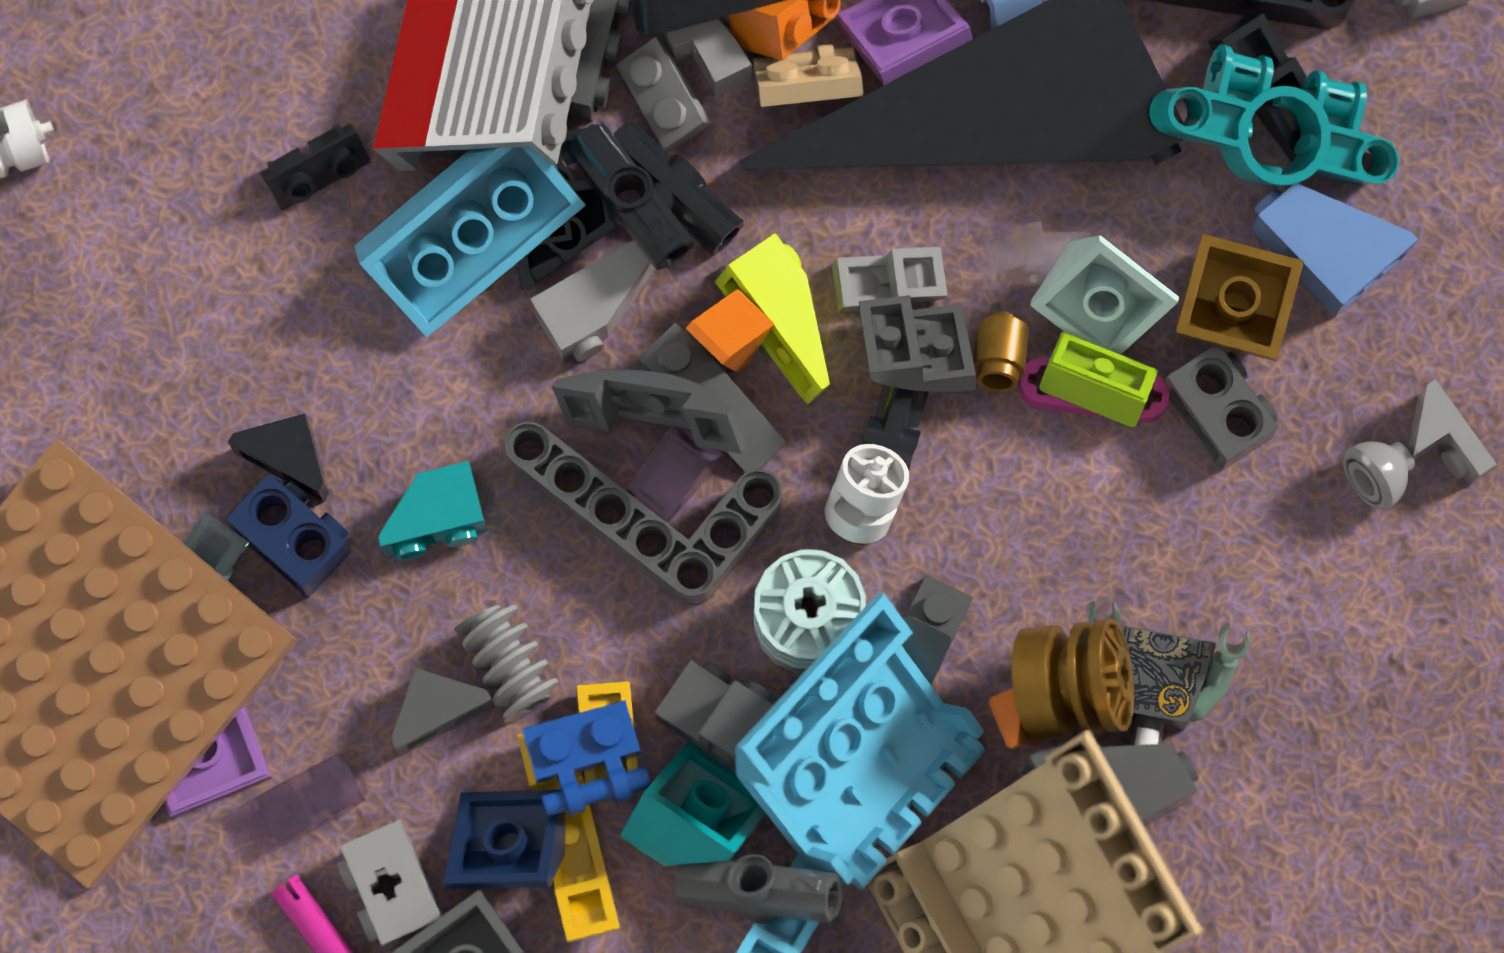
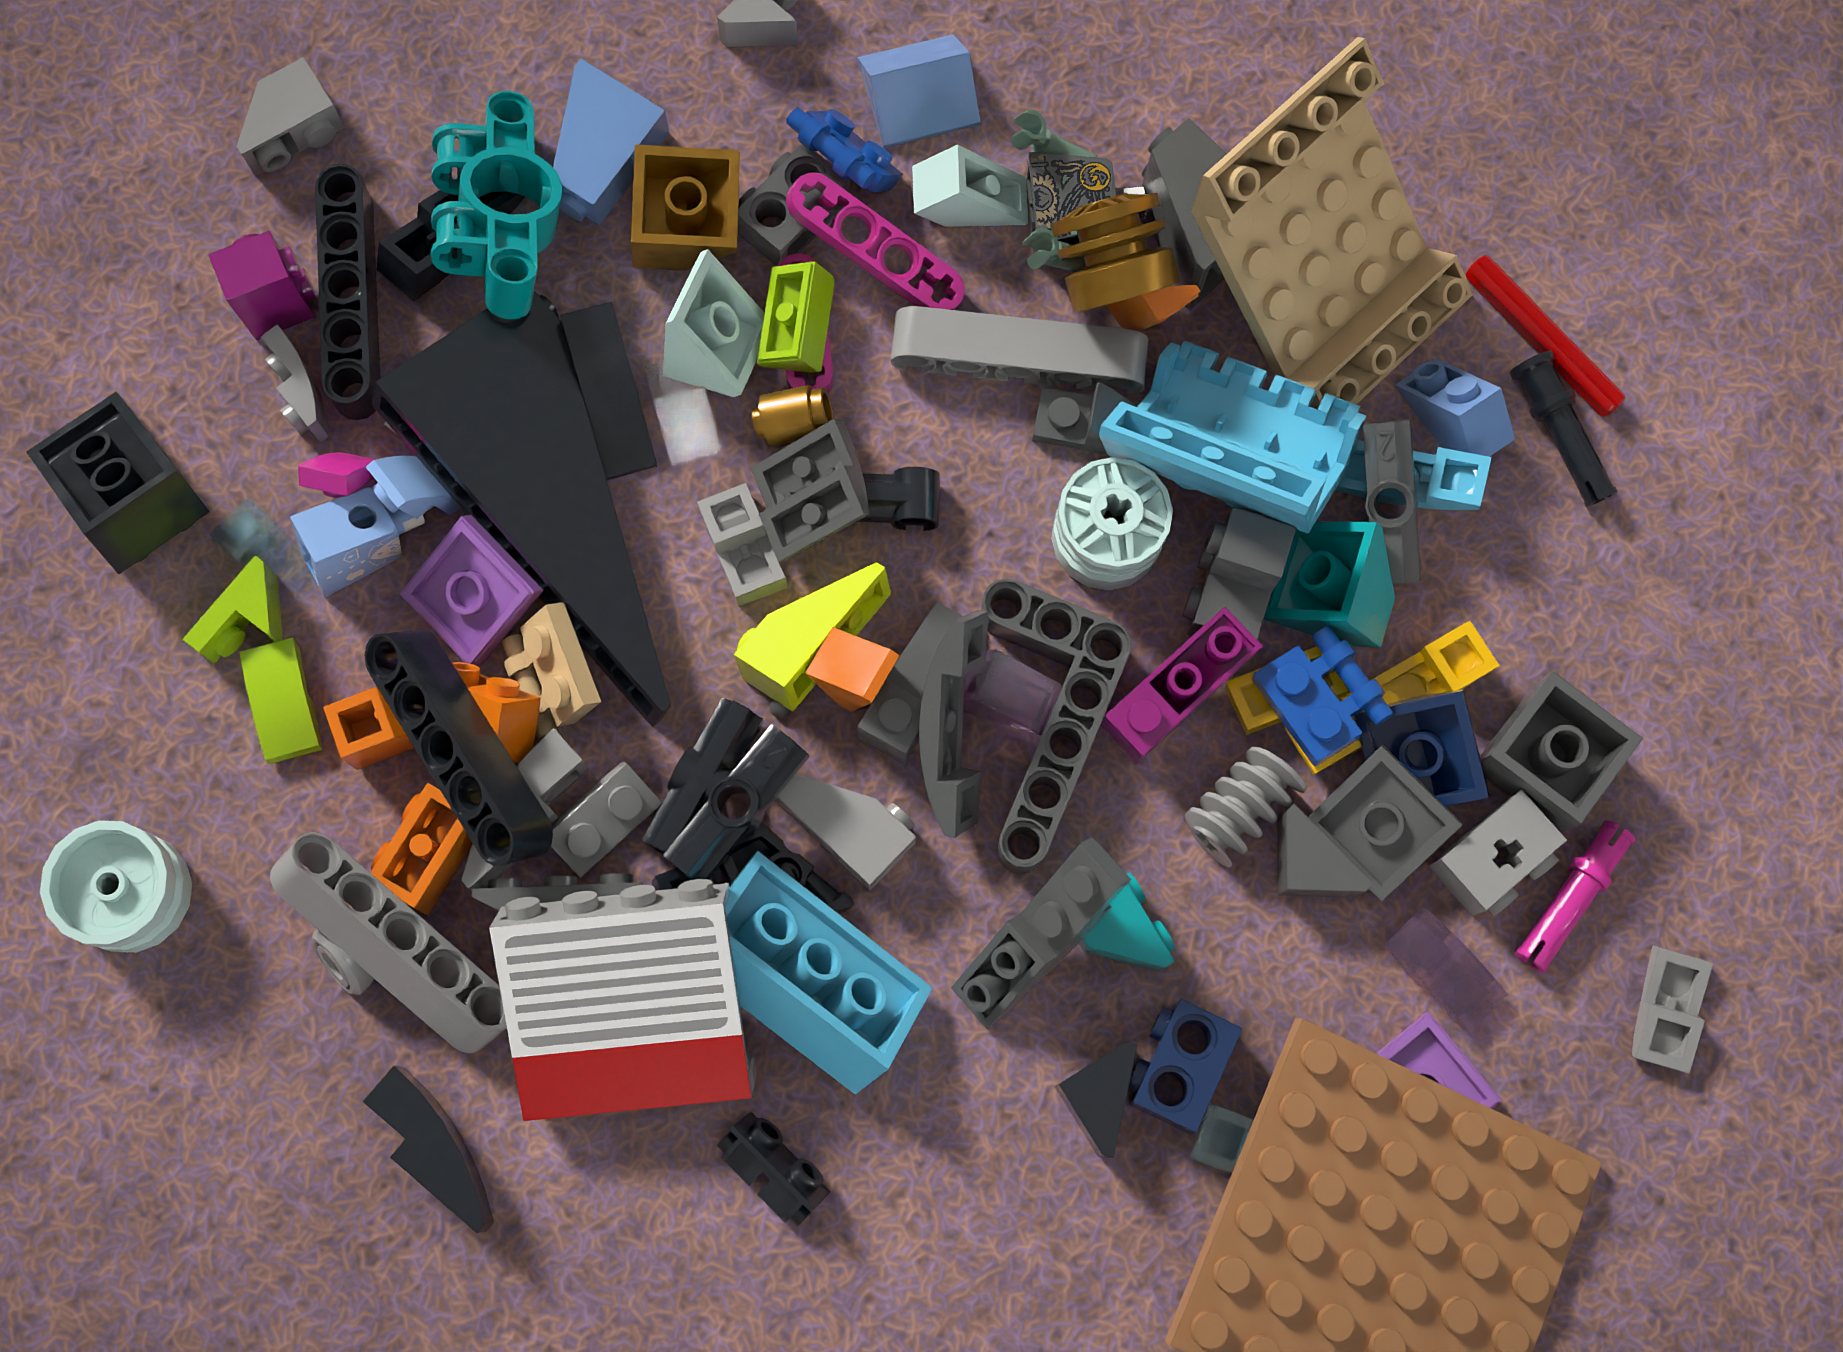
camera: 110 degrees left, 0 degrees up
(436, 429) = (1042, 933): none -> dark grey slope
(452, 783) = (1385, 821): none -> dark grey plate
(633, 628) = (1180, 685): none -> magenta slope
(866, 493) = (977, 499): white wheel -> none
(1014, 583) = (1019, 348): none -> light grey beam
(1070, 191) = (609, 390): none -> black slope
(1147, 463) = (880, 237): none -> dark pink beam
(1194, 580) = (968, 190): none -> light aqua slope
(1264, 468) = (851, 156): none -> blue plate
(1325, 567) = (920, 90): none -> medium blue slope
(1378, 472) = (818, 54): light grey brick -> none

